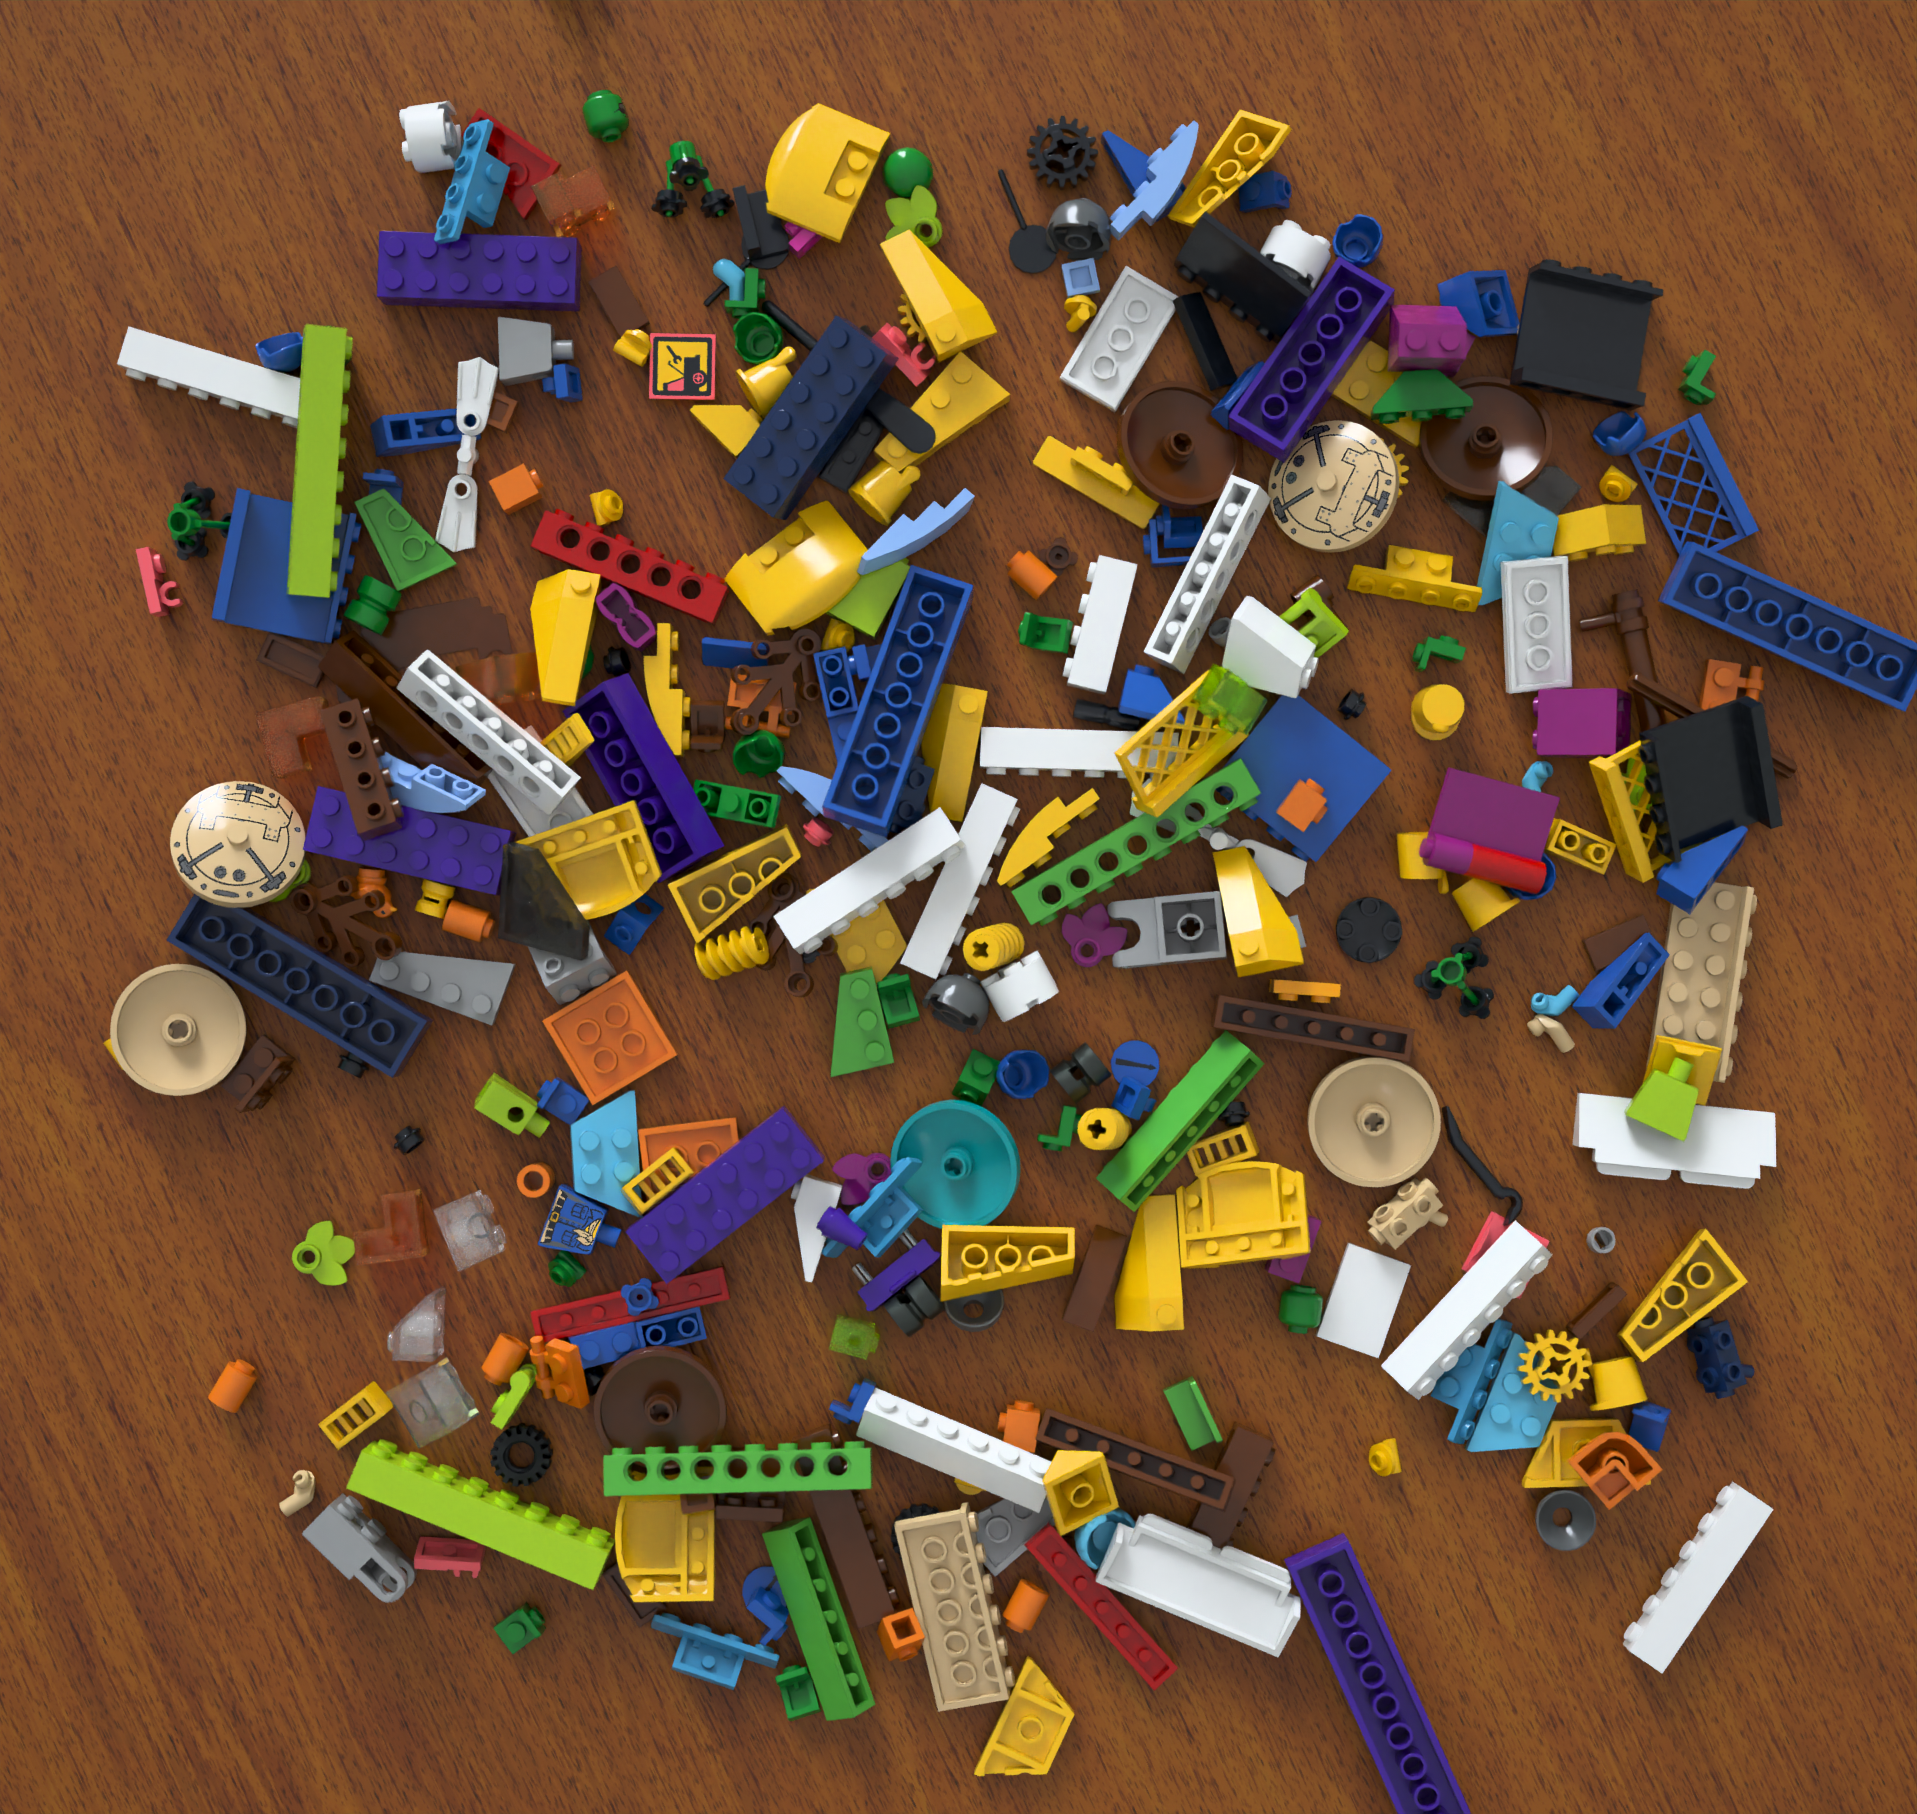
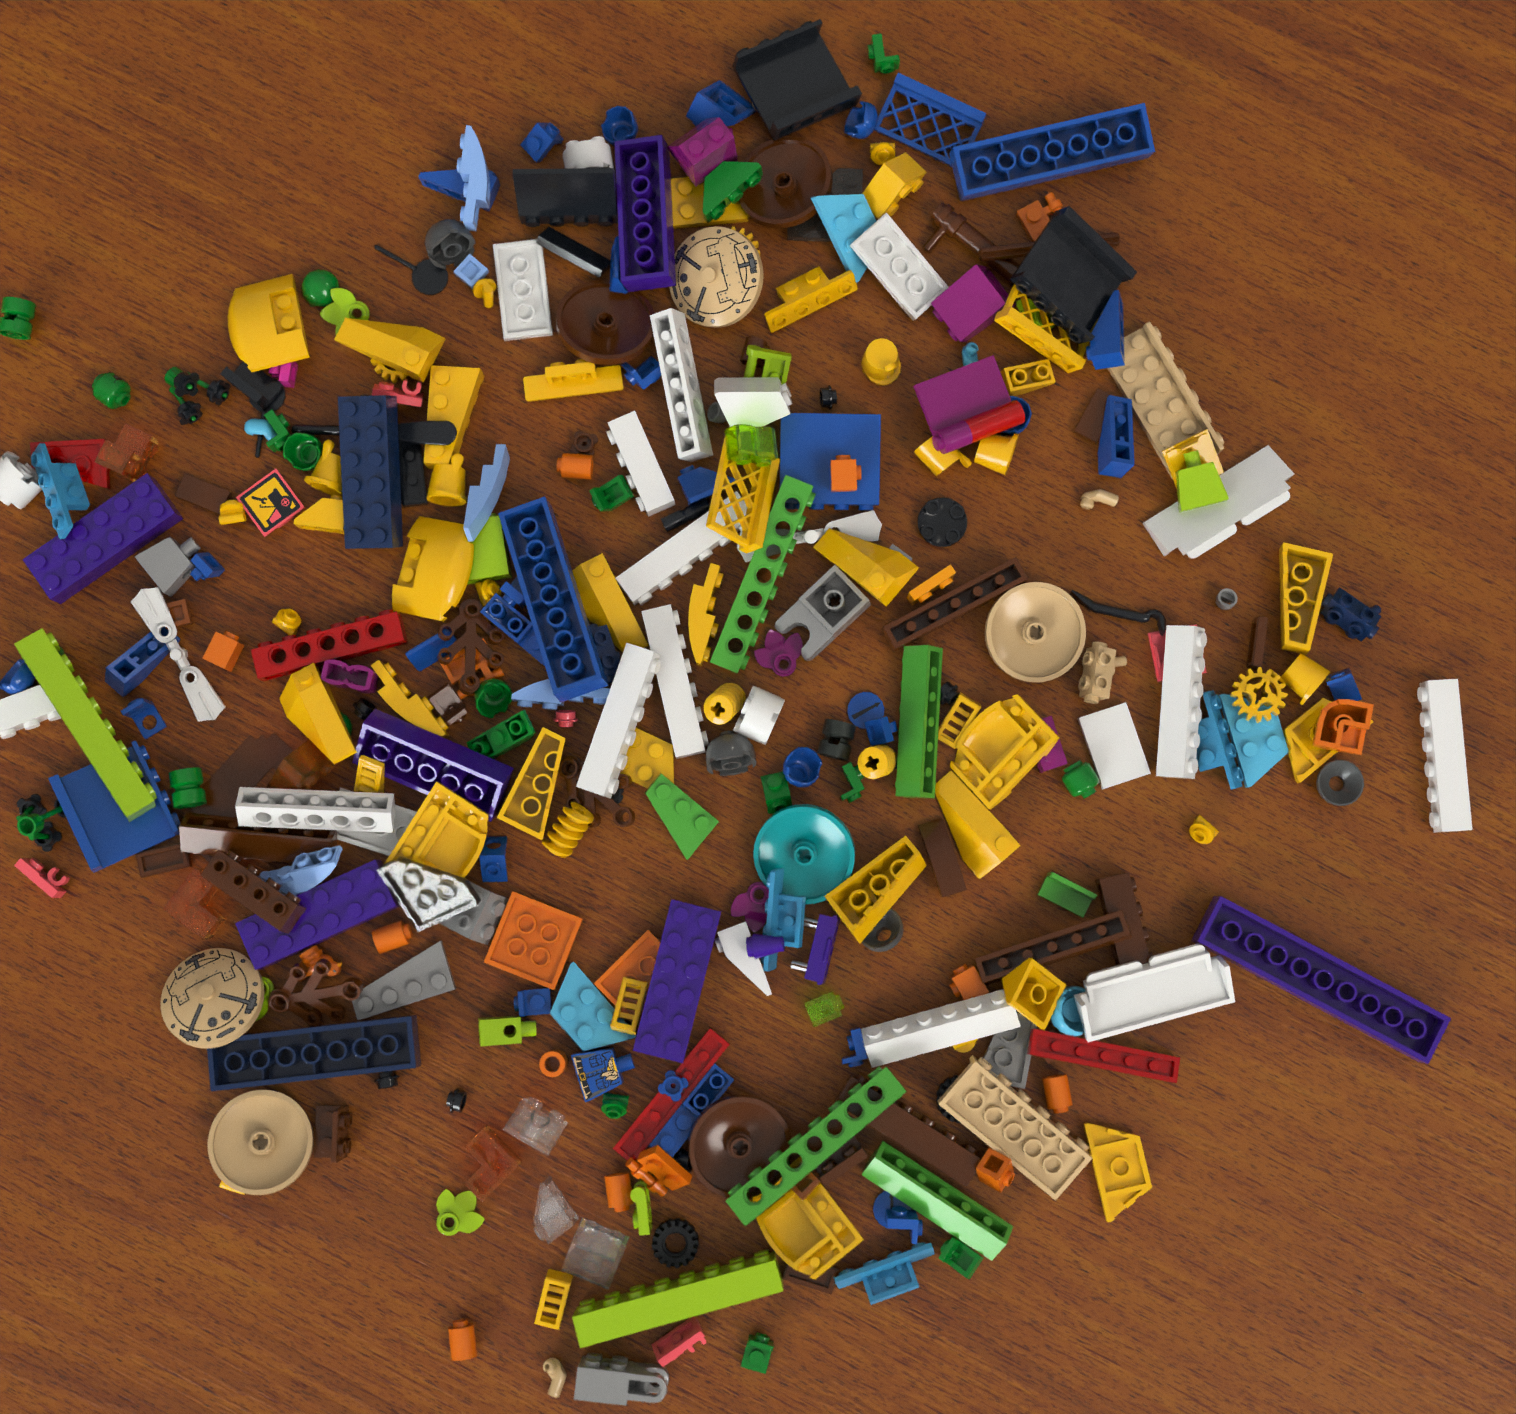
camera: 35 degrees left, 5 degrees down
(401, 542) = (178, 737): bright green wing -> none
(438, 892) = (359, 932): yellow wheel -> none
(897, 1000) = (692, 781): green bracket -> none
(914, 1306) = (846, 960): pearl dark grey wheel -> none
(1074, 147) = (401, 197): black gear -> none
(1150, 547) = (634, 395): blue bracket -> none
(1235, 158) = (508, 136): yellow wedge -> none
(1442, 648) = (855, 323): green bracket -> none
(1453, 973) = (1012, 505): black plant -> none
(1554, 1005) = (1086, 482): medium azure arm -> none

